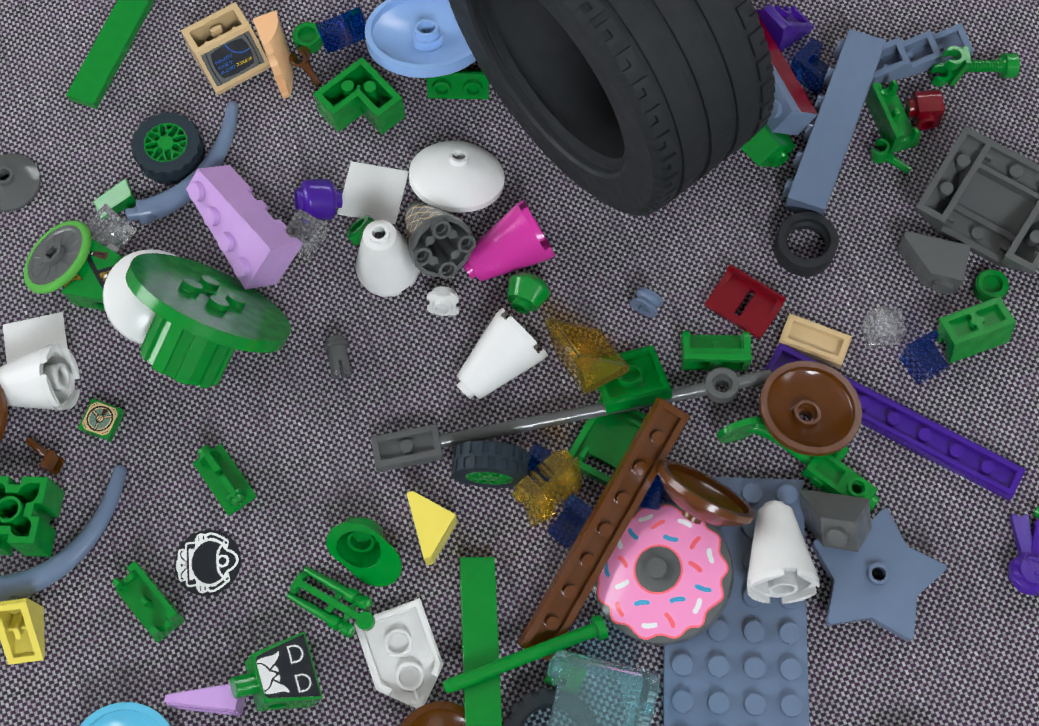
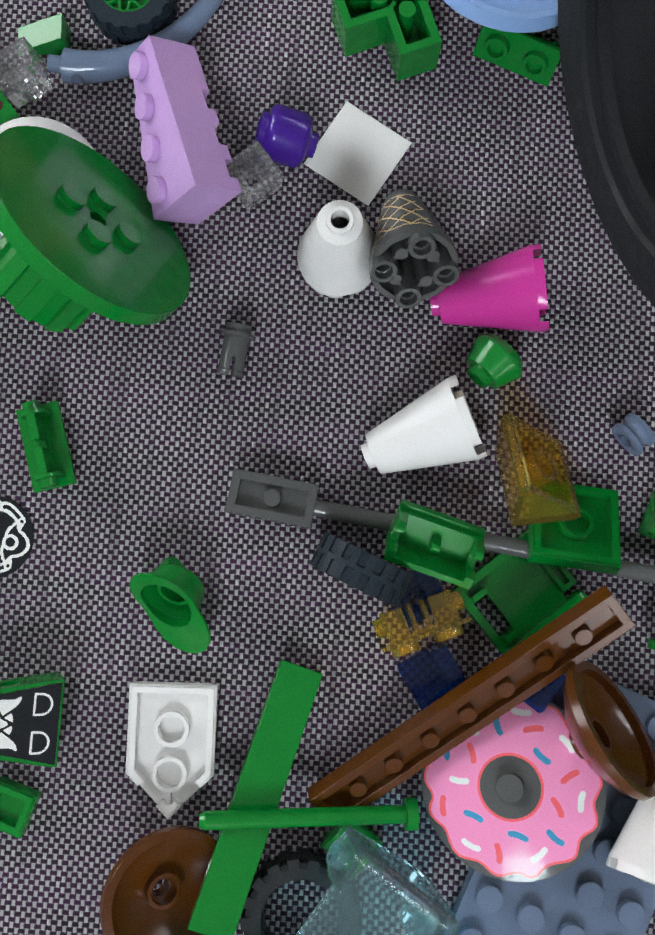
camera: 20 degrees right, 15 degrees up
(356, 230) = (321, 195): green tile -> none
(364, 620) = (139, 694): green piece -> none
(432, 525) = (263, 606): light yellow slope -> none
(443, 301) = (387, 331): white plate -> none
(456, 176) = (467, 175): white dish -> none
(535, 425) = (435, 544): none -> green hinge

